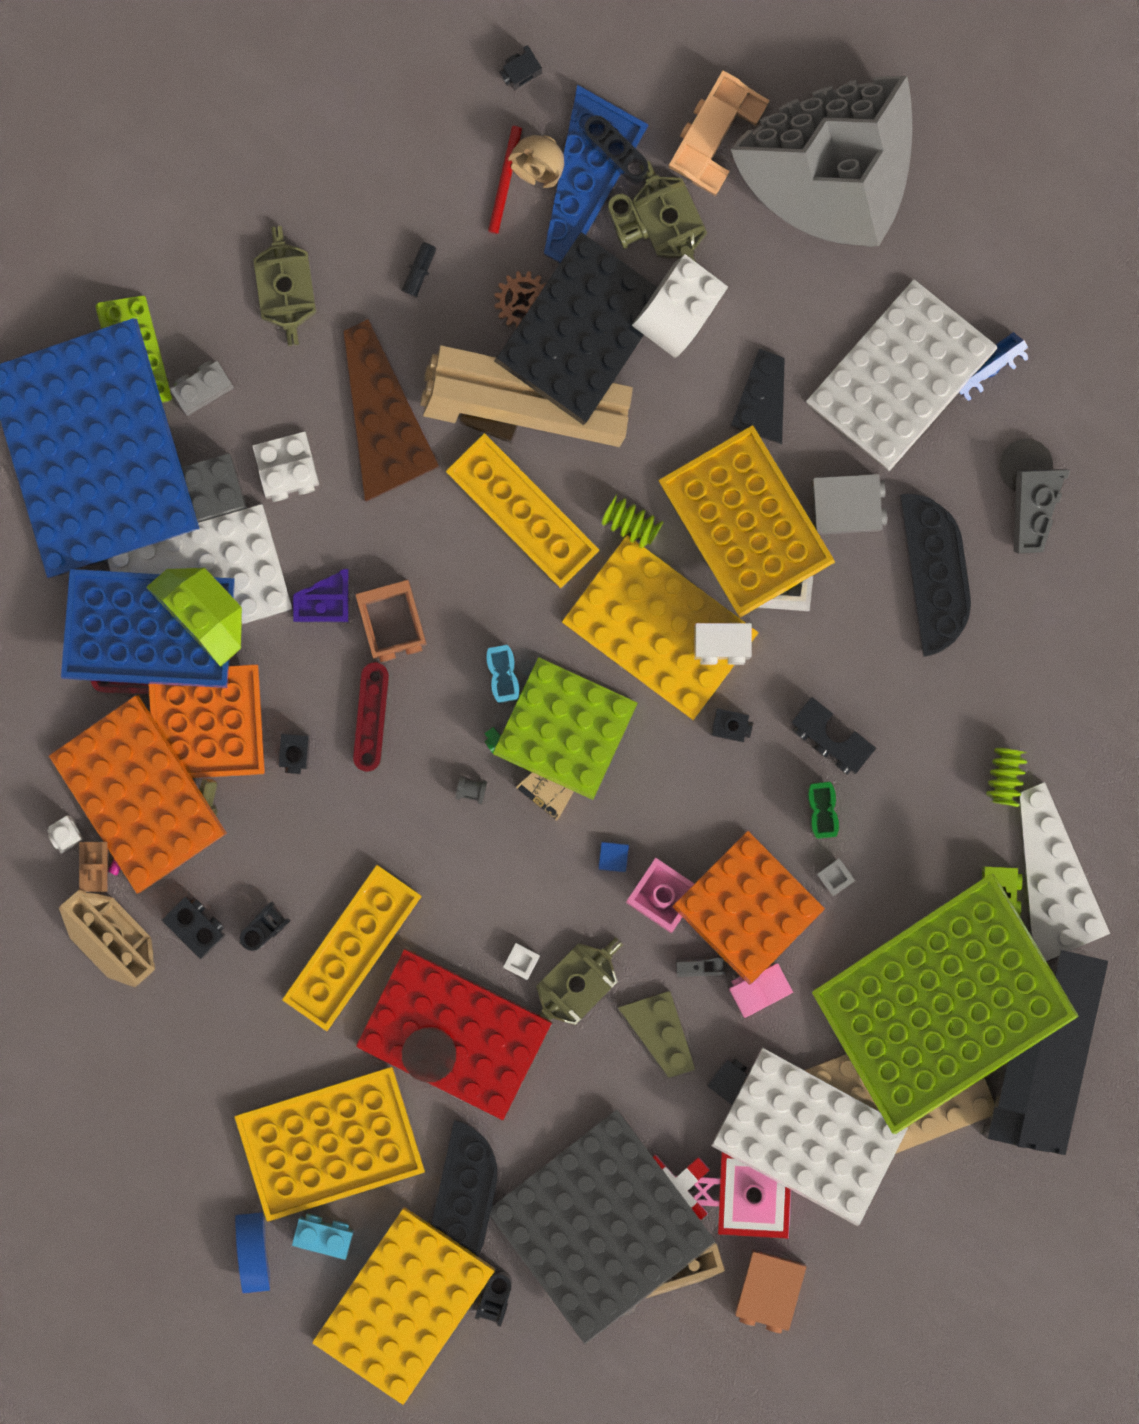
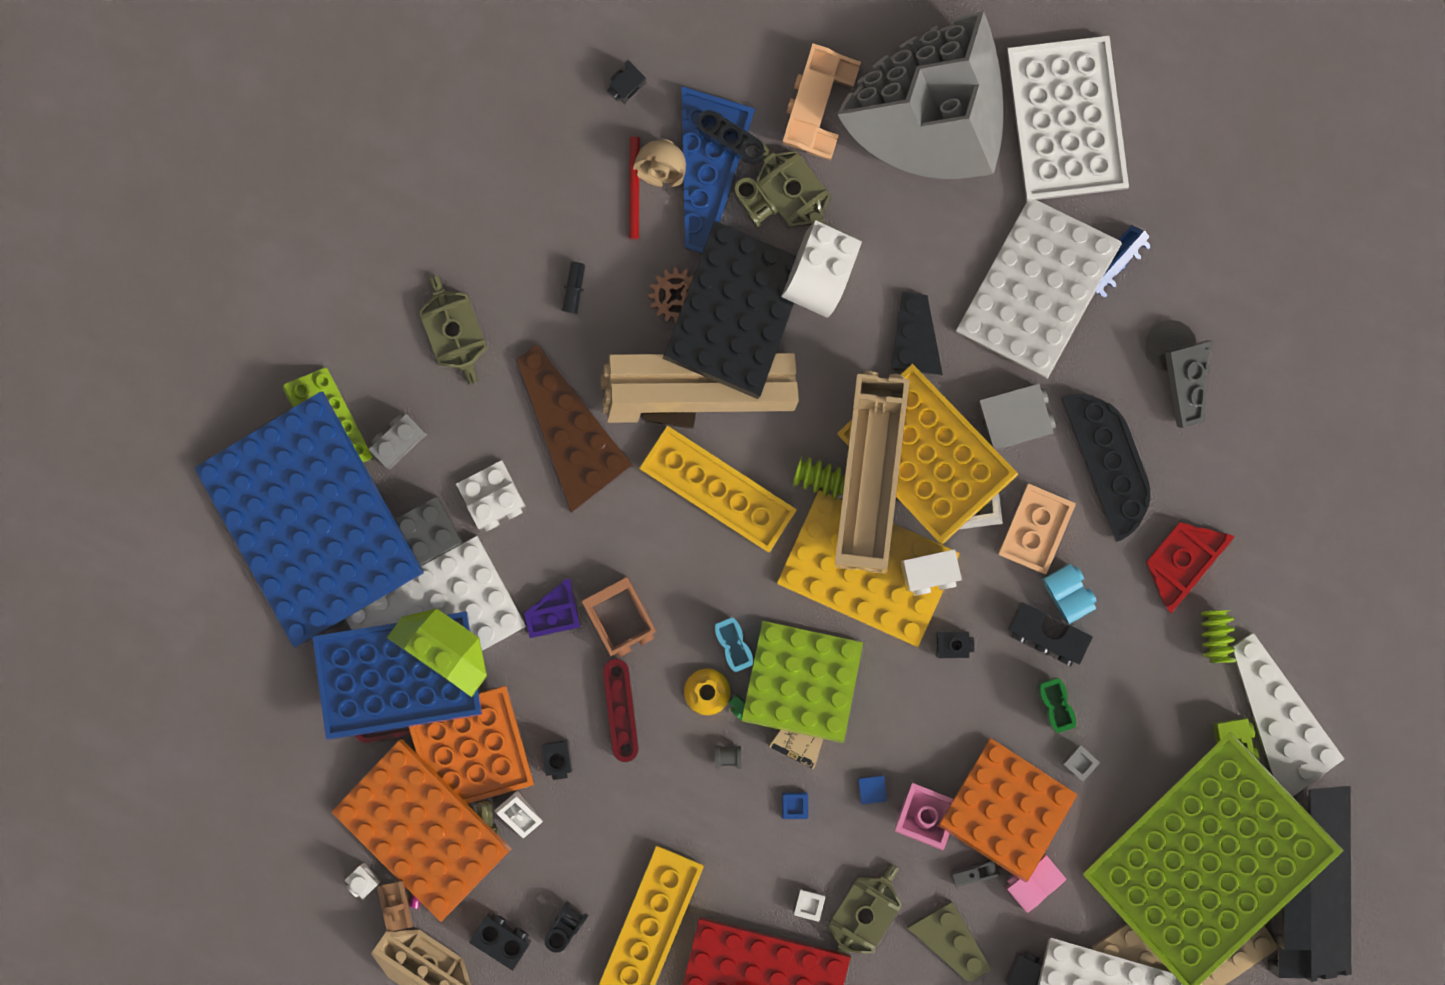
camera: 15 degrees left, 0 degrees up
(241, 801) = (519, 814): none -> white slope
(468, 733) = (710, 677): none -> yellow piece
(529, 856) = (795, 805): none -> blue tile
(684, 526) = (872, 472): none -> tan brick
(844, 625) = (1036, 529): none -> light nougat plate
(862, 698) = (1069, 593): none -> medium azure brick
(971, 206) = (1067, 118): none -> white plate
(989, 691) = (1183, 560): none -> red wing

